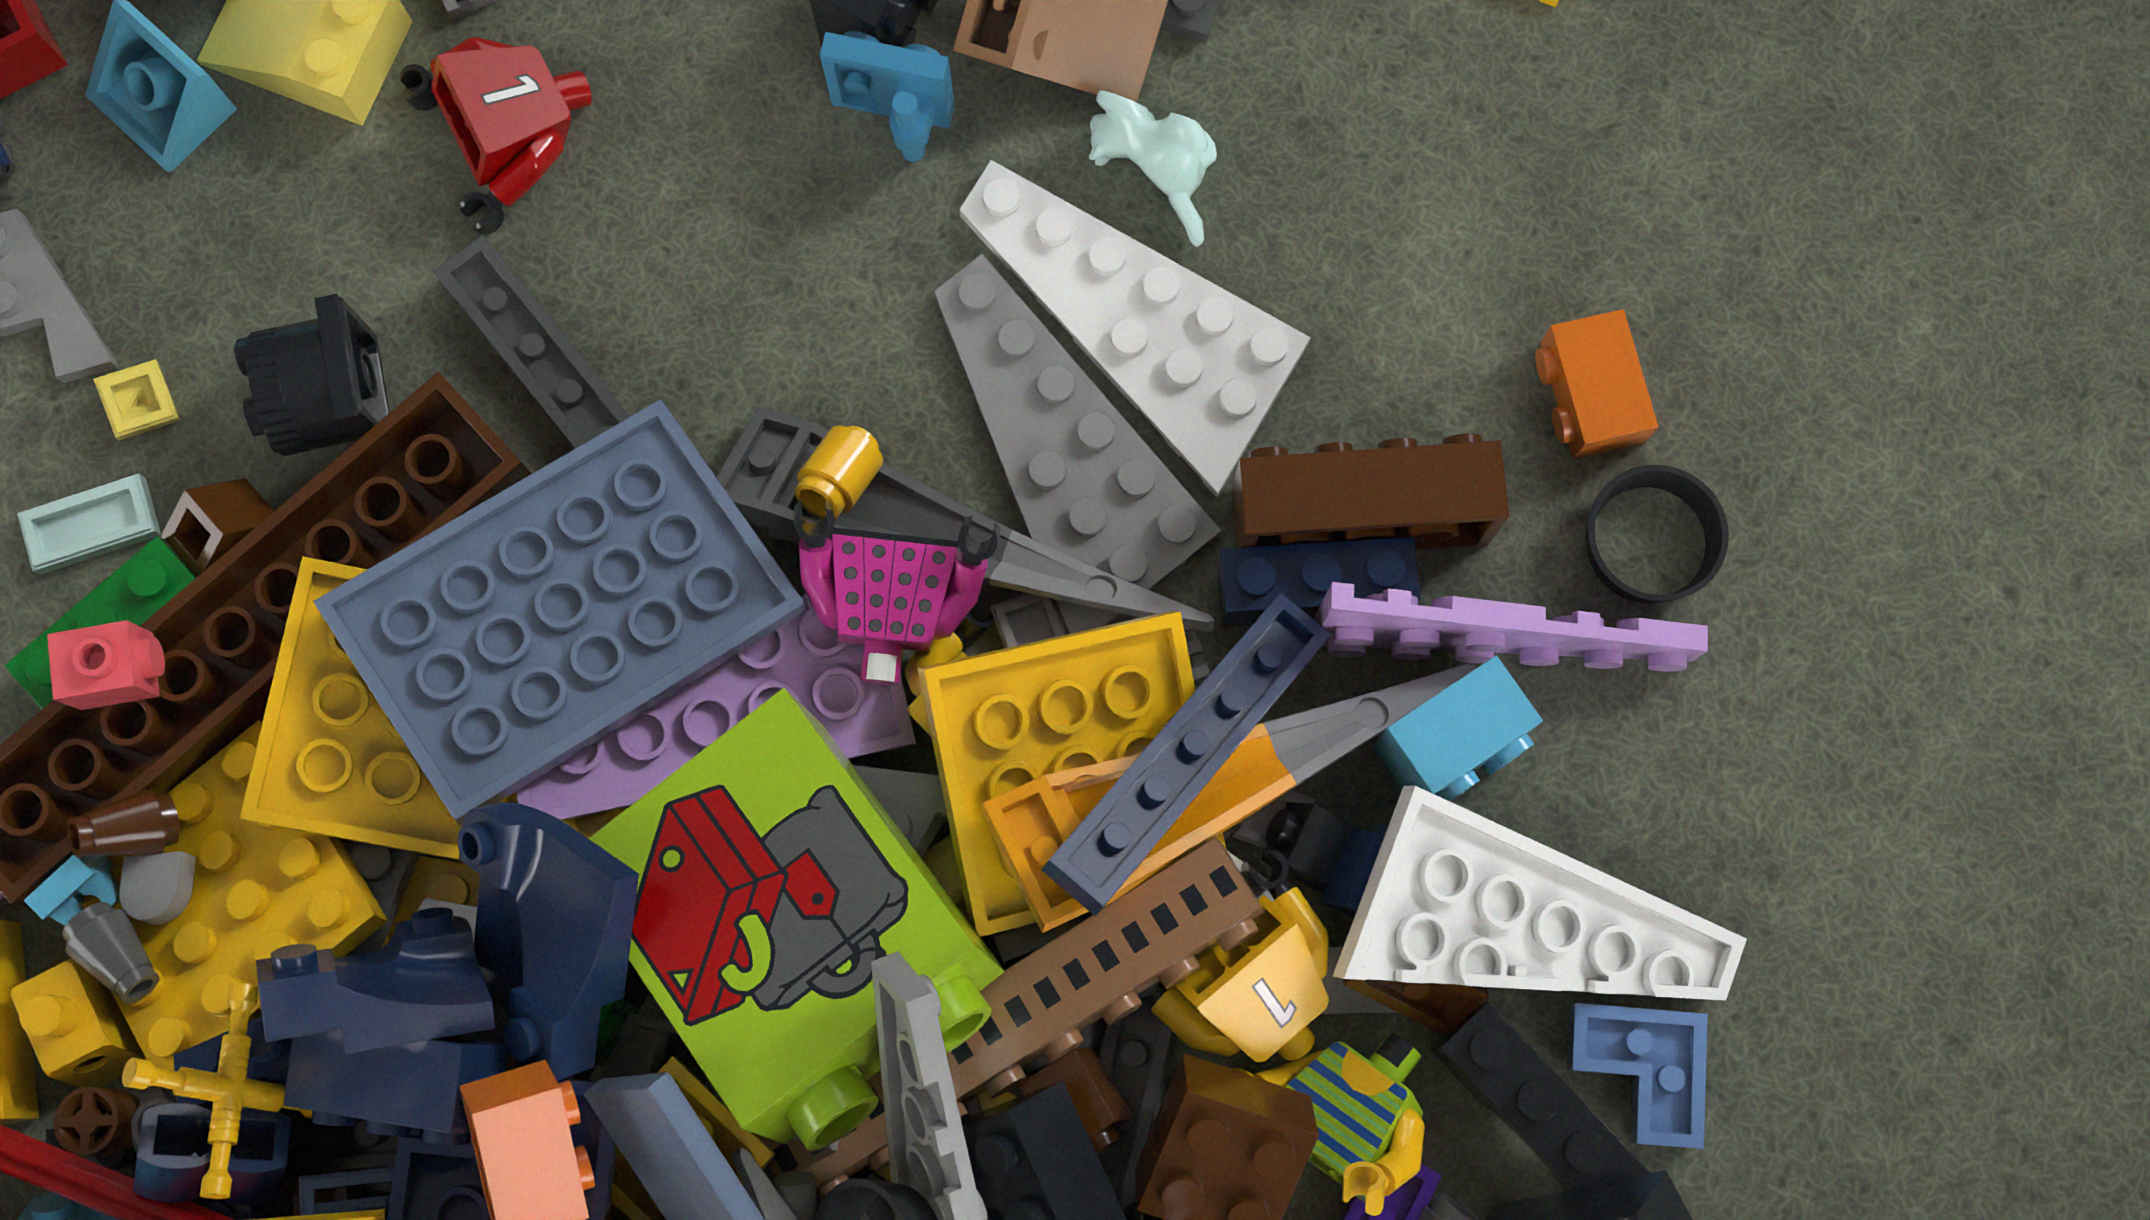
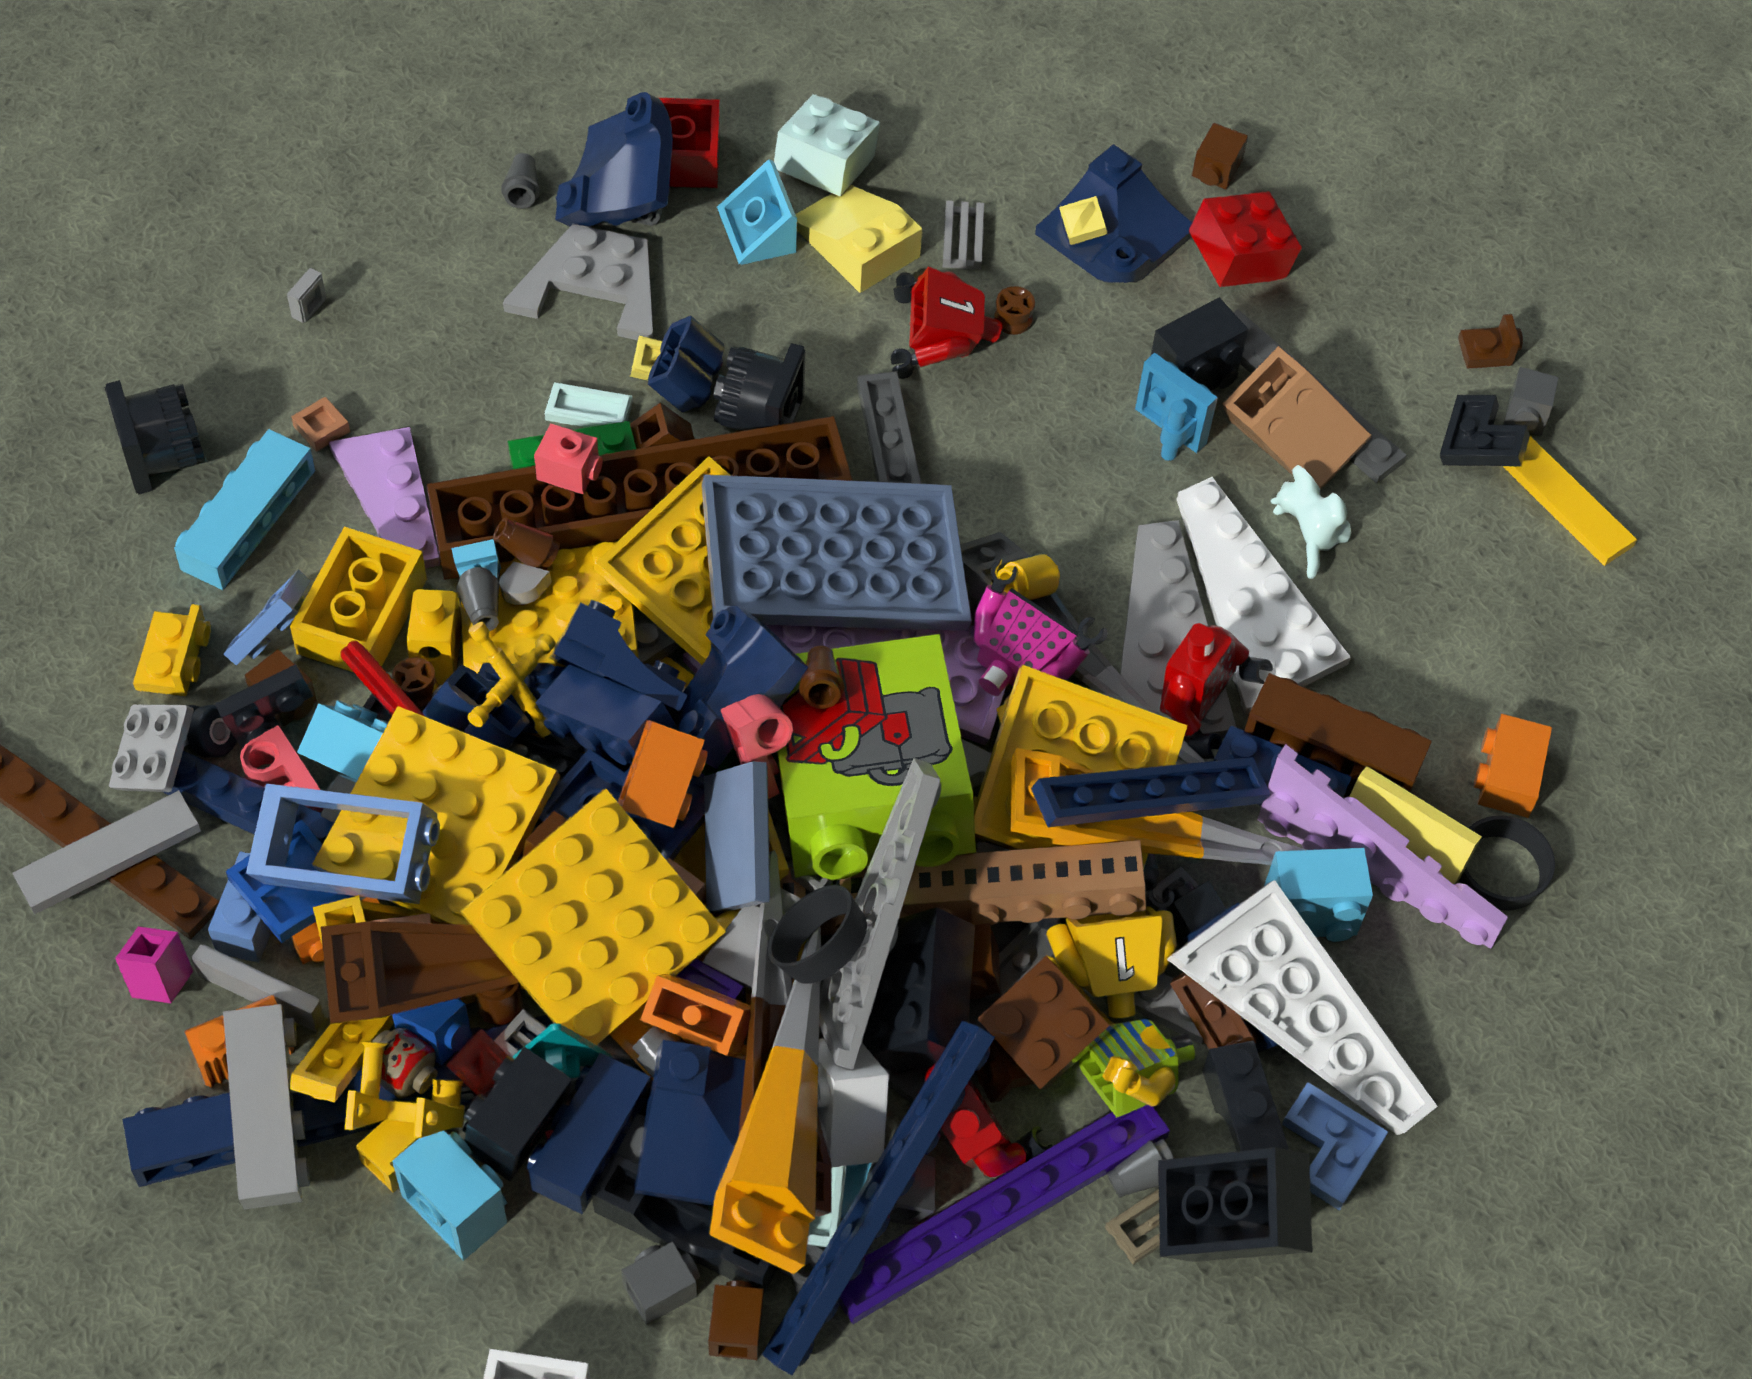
camera: 25 degrees right, 20 degrees down
(186, 388) = (686, 364): none -> dark blue brick
(582, 29) = (1011, 301): none -> reddish brown wheel
(625, 1010) = (757, 742): none -> coral plate
(663, 866) = (822, 681): none -> reddish brown cone
(1143, 501) = (1198, 677): none -> red torso
(1525, 570) = (1426, 827): none -> light yellow tile

